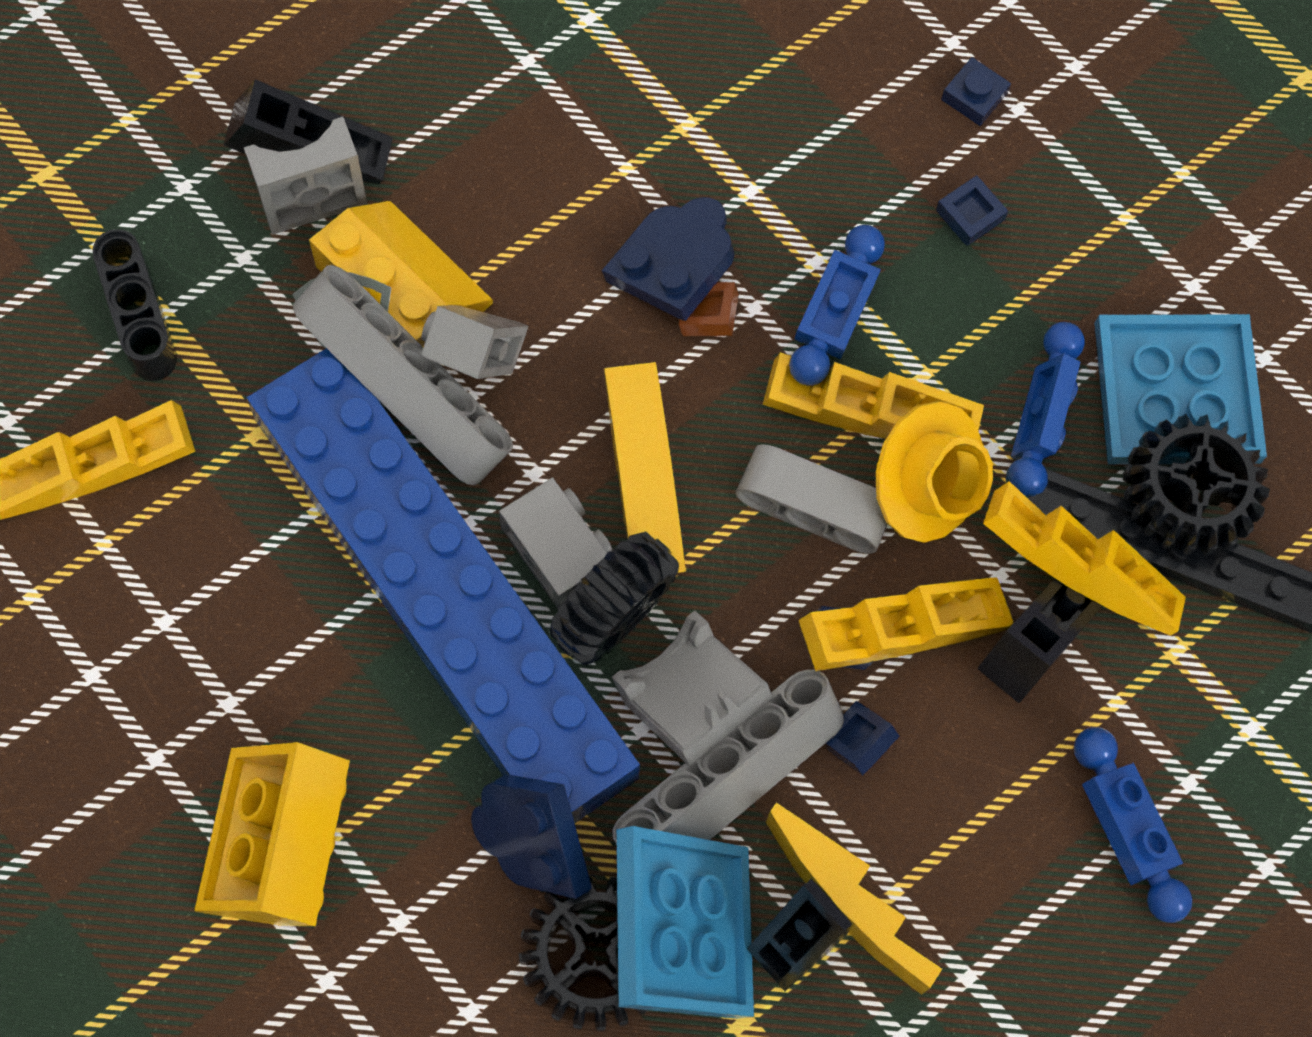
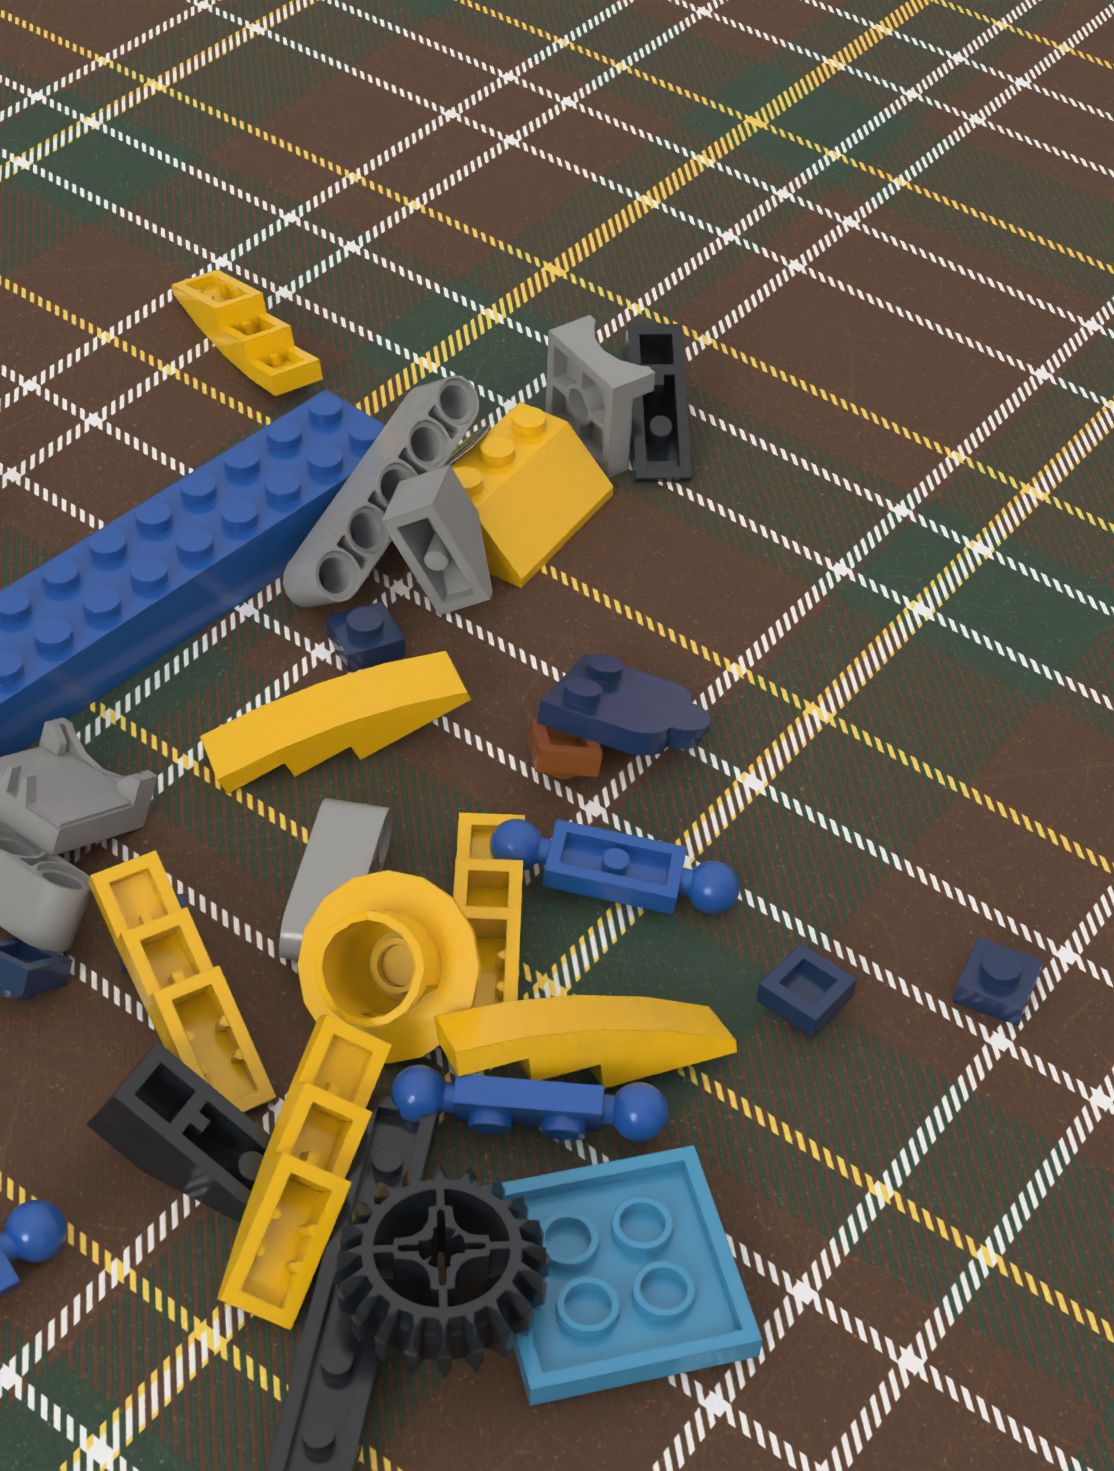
camera: 80 degrees right, 25 degrees down
(128, 284) = (420, 329): black beam -> none
(534, 433) = (365, 636): none -> dark blue plate
(553, 538) = (225, 662): light grey brick -> none
(614, 598) = (151, 689): black gear -> none
(1003, 361) = (608, 1034): none -> yellow slope

